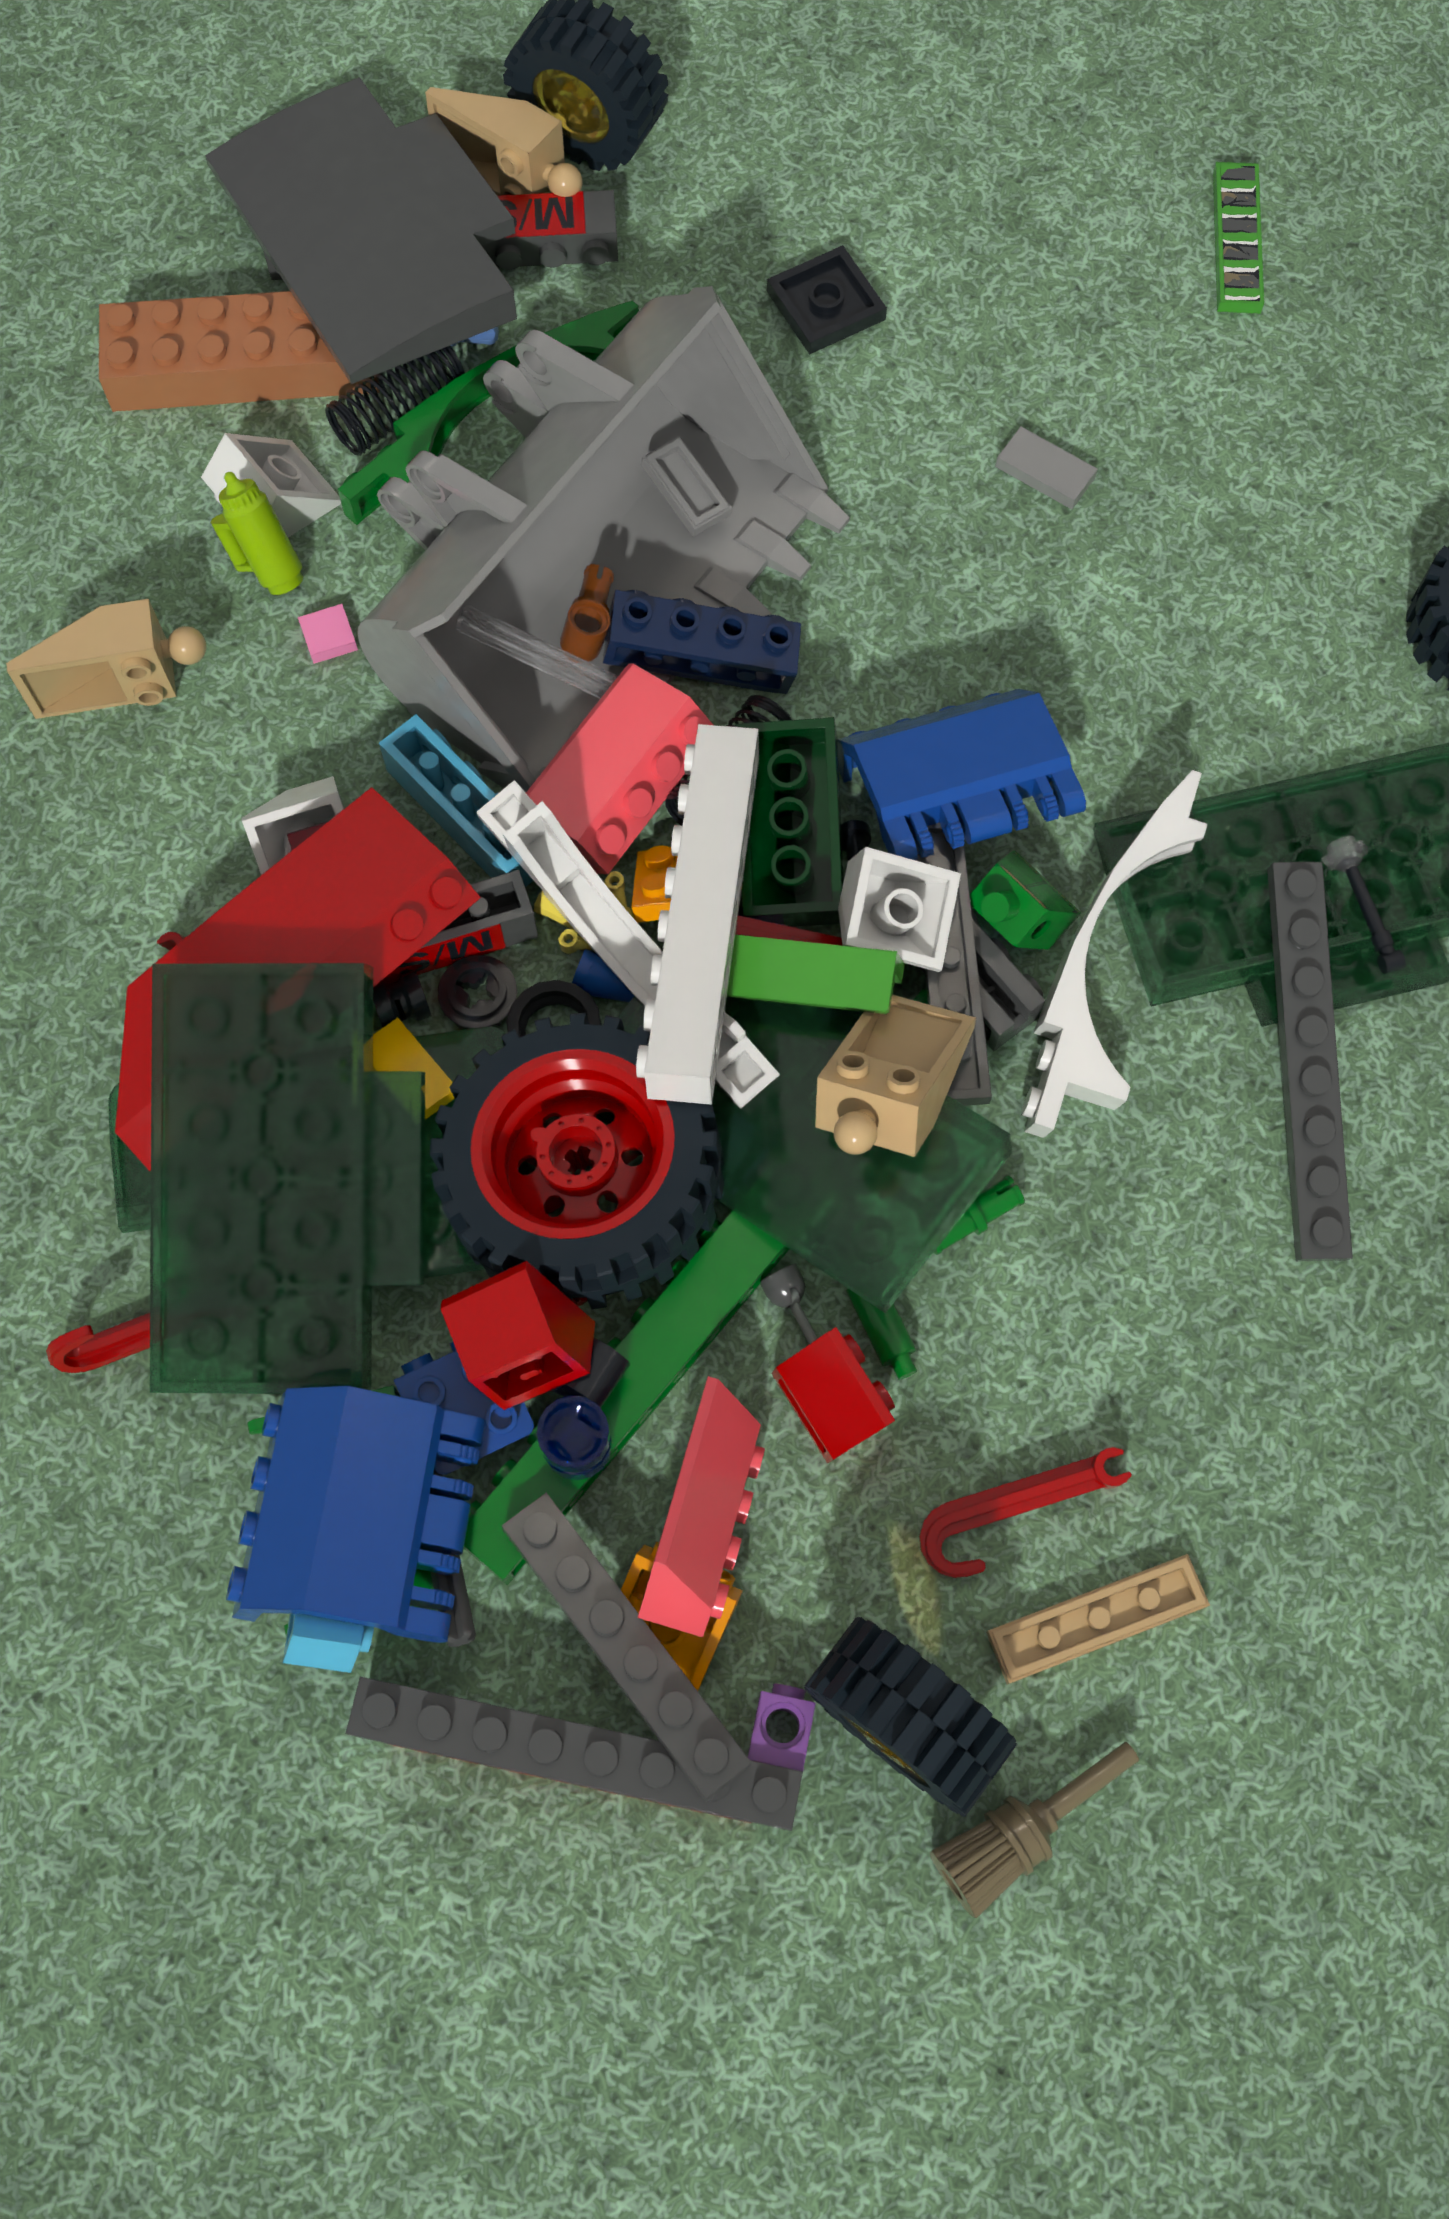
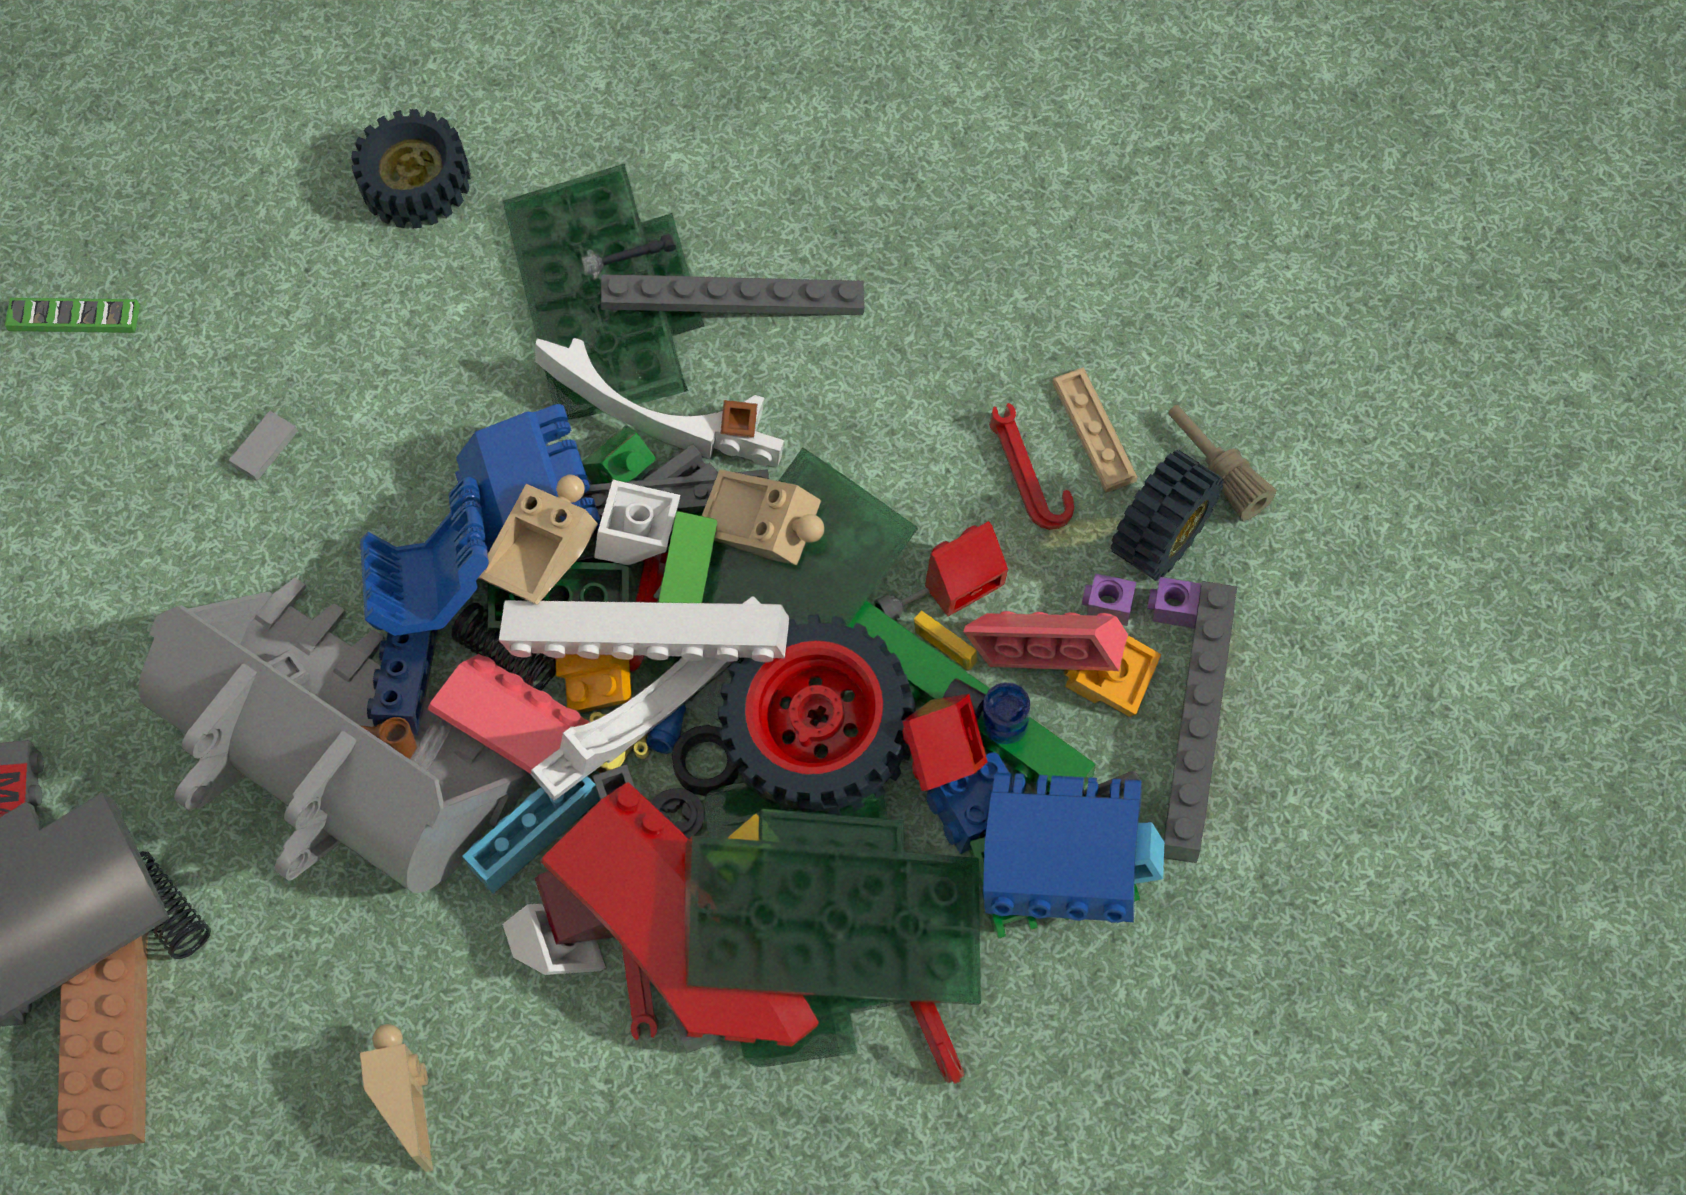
camera: 85 degrees left, 5 degrees down
(256, 537) = (294, 988): lime piece -> none
(280, 471) = (238, 999): white slope -> none
(327, 633) = (371, 946): bright pink tile -> none
(434, 420) = (225, 890): green slope -> none
(627, 1647) = (1133, 682): dark grey plate -> none
(728, 1359) = (945, 641): none -> yellow tile
(784, 1647) = (1119, 589): none -> medium lavender brick
(826, 299) = (99, 593): black plate -> none
(827, 637) = (430, 581): none -> blue hinge
(847, 767) = (536, 544): none -> tan slope
(886, 1335) = (919, 547): green cylinder -> none
(1085, 1060) = (738, 418): none -> dark orange slope

